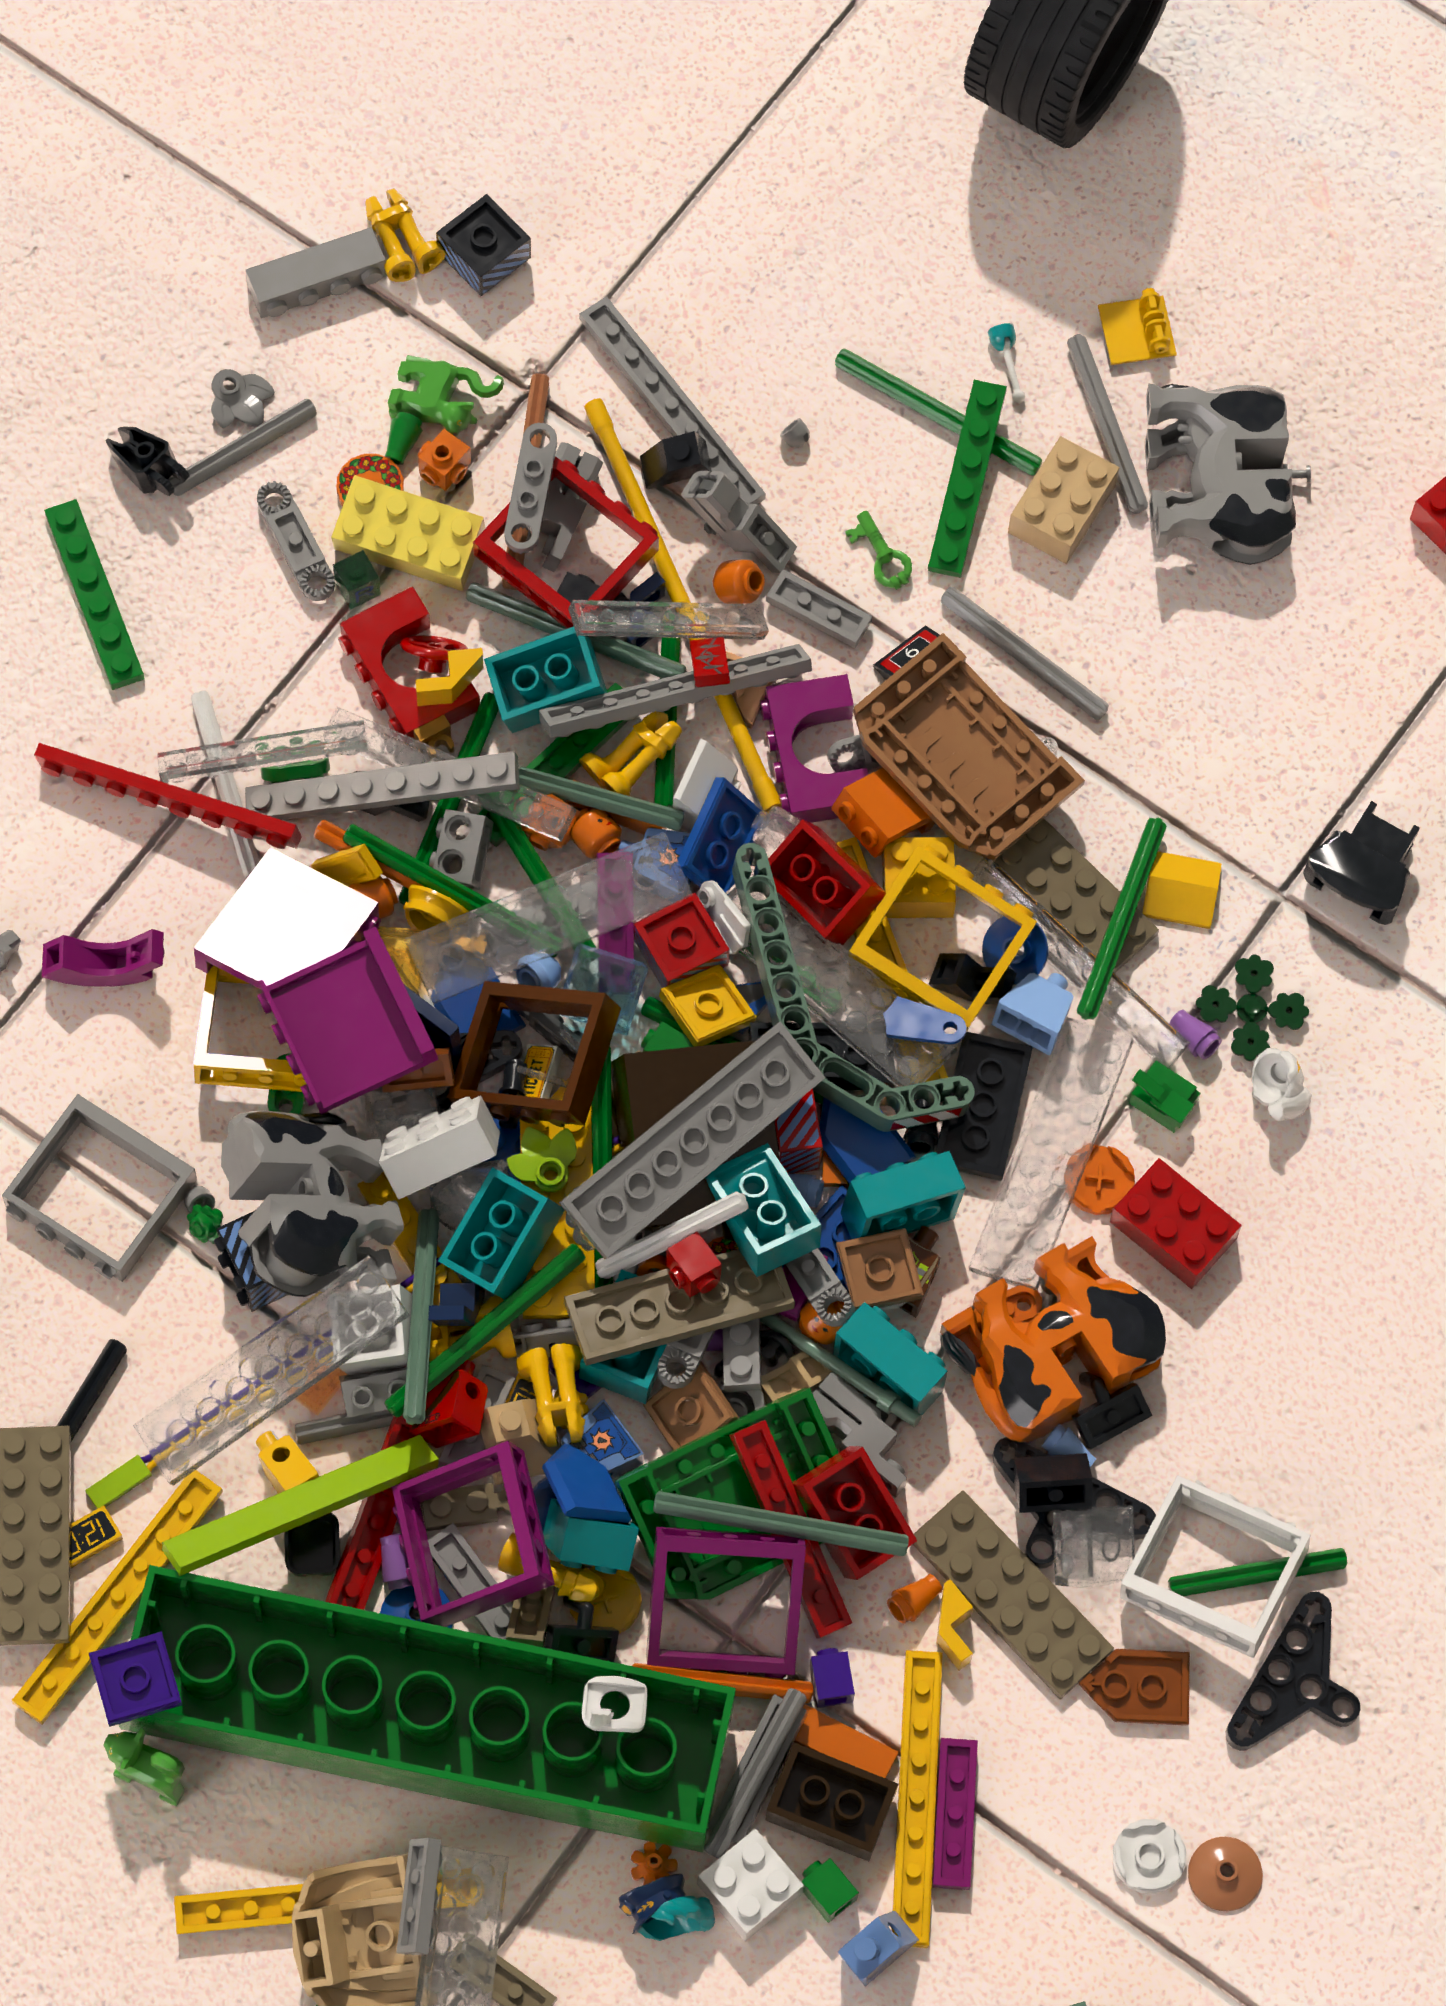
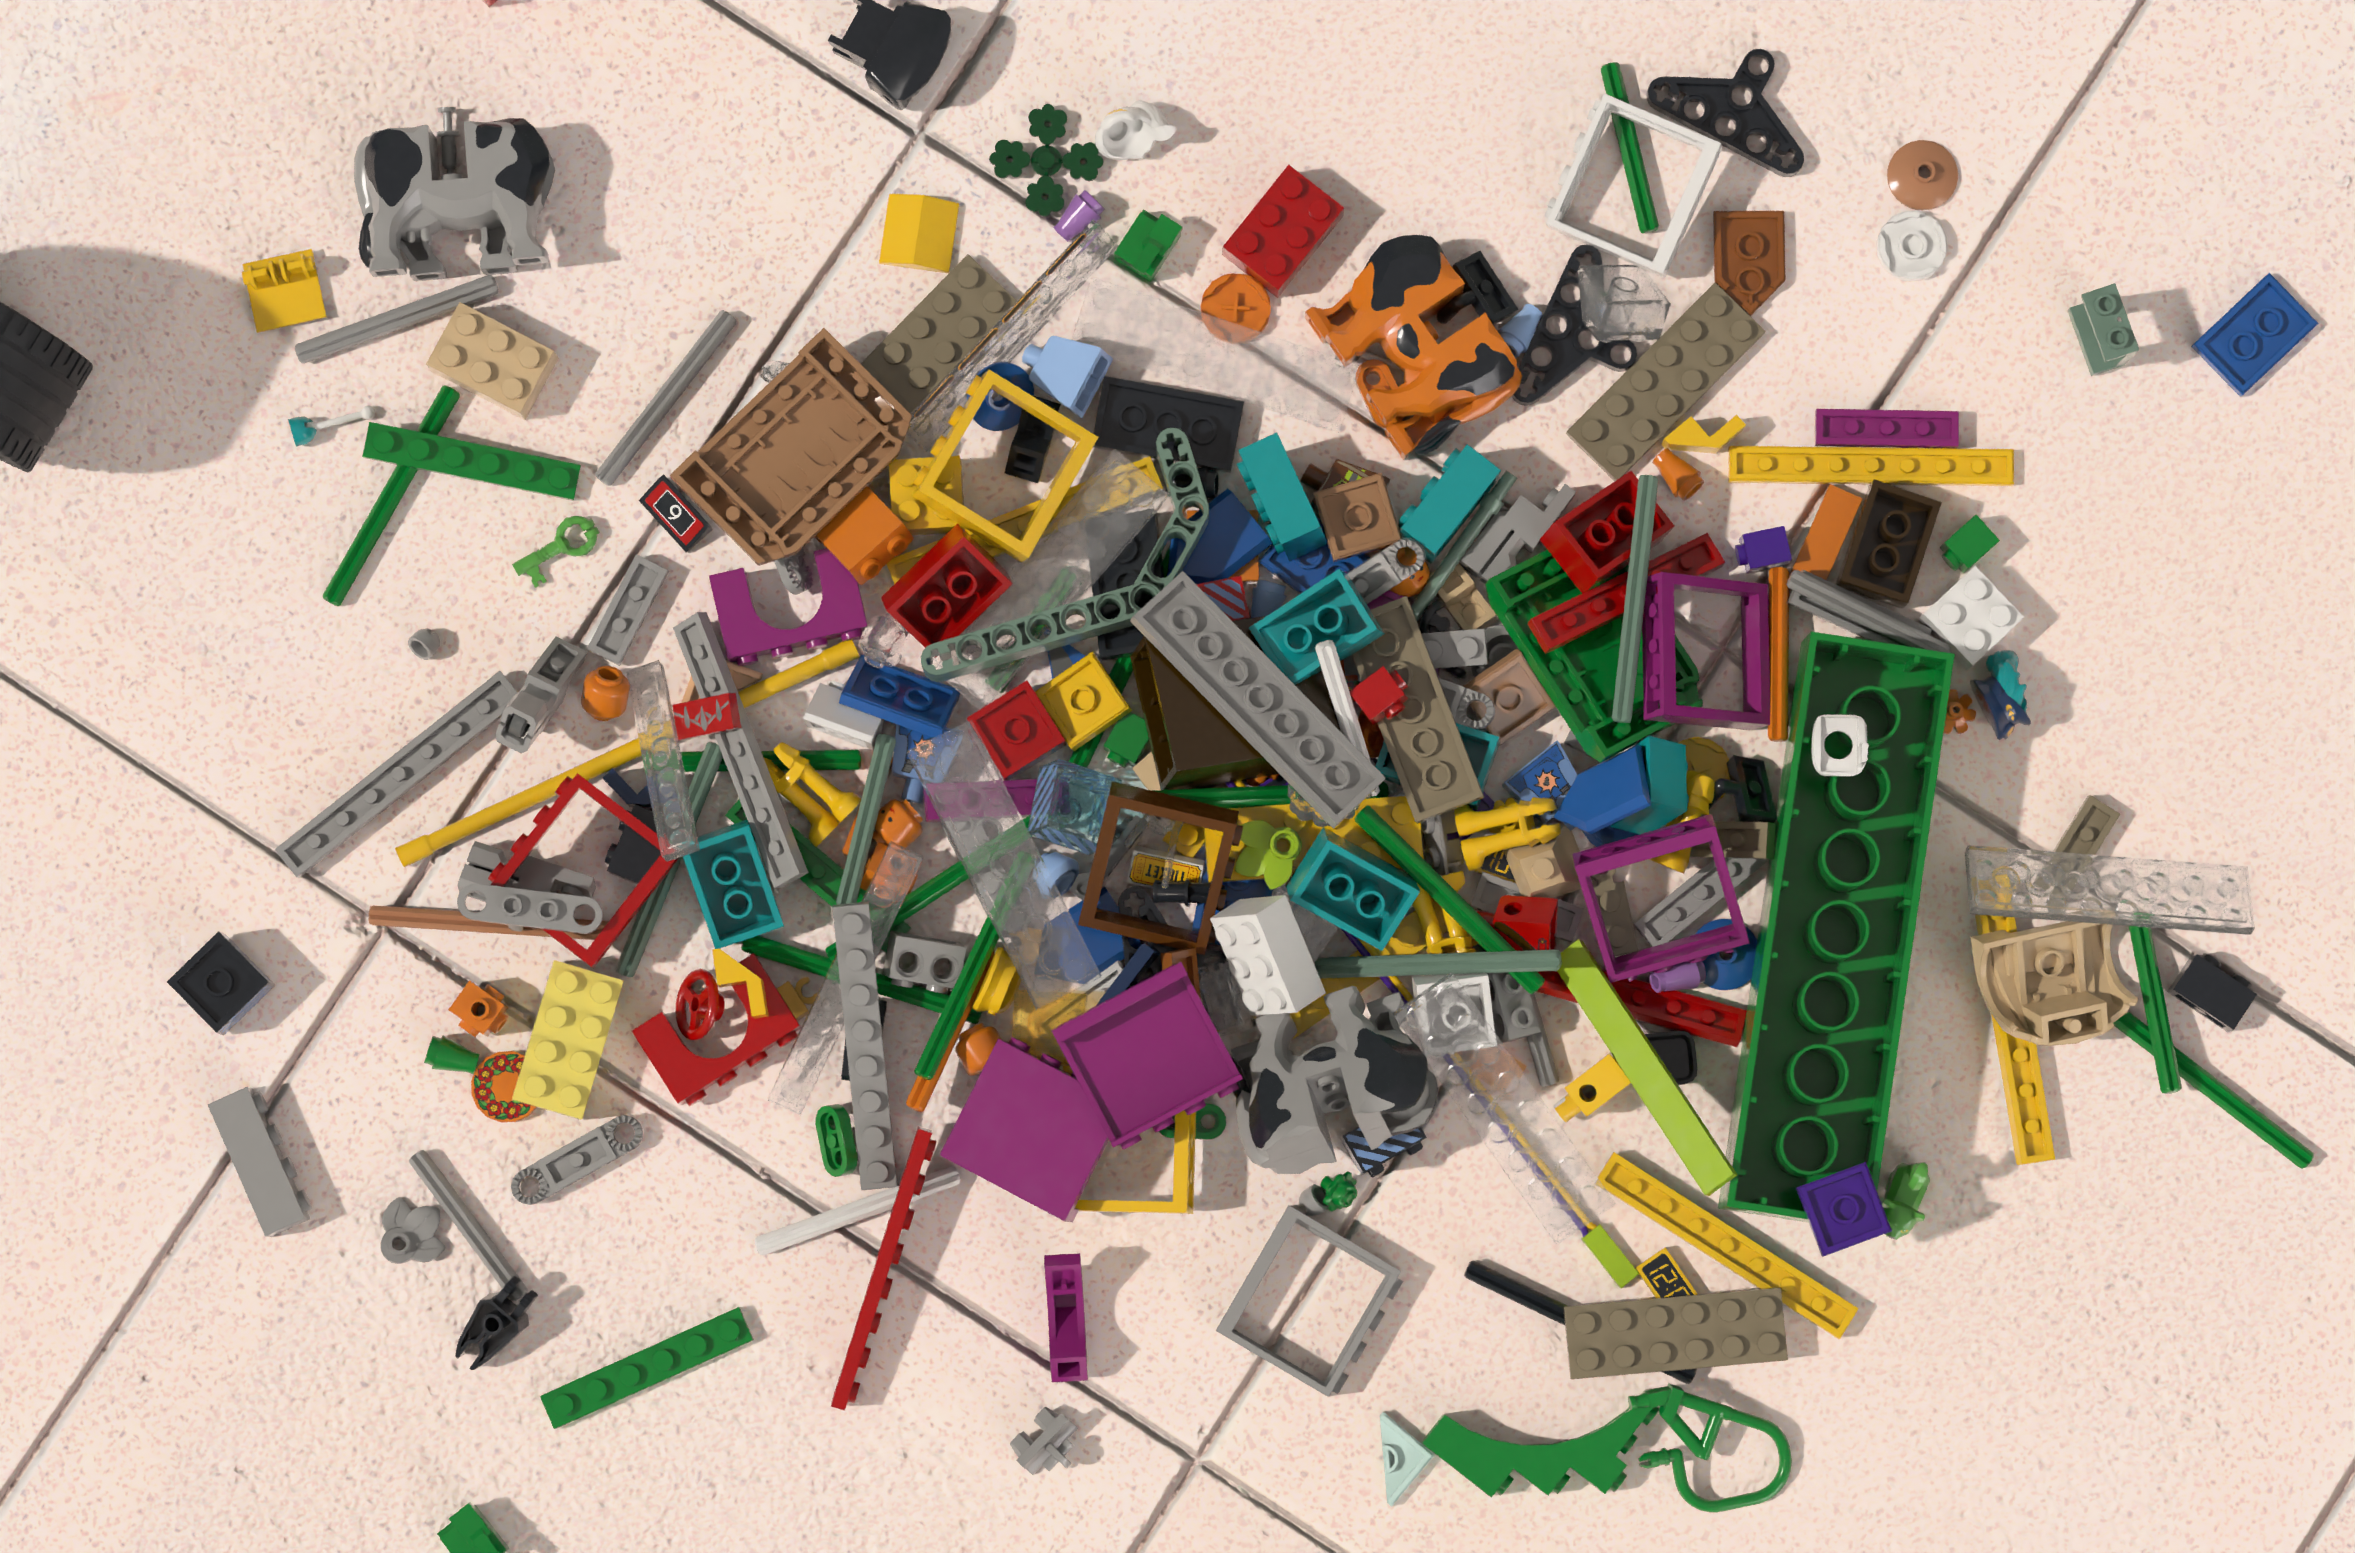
camera: 90 degrees left, 15 degrees up
(262, 752) = (830, 1172): clear plate -> none
(349, 866) = (955, 1076): yellow tile -> none
(356, 579) = (621, 1091): clear green brick -> none
(399, 265) = (242, 1073): yellow piece -> none
(419, 1896) = (2023, 924): light grey plate -> none
(433, 395) = (394, 1024): bright green animal -> none
(457, 1305) = (1426, 930): dark blue slope -> none
(675, 459) = (470, 765): black slope -> none
(725, 915) = (990, 686): white piece -> none
(877, 1946) = (2029, 499): medium blue torso -> none
(922, 1023) = (1098, 483): piece -> none
(1053, 1483) = (1565, 341): black brick -> none
(1121, 919) = (965, 289): green axle -> none

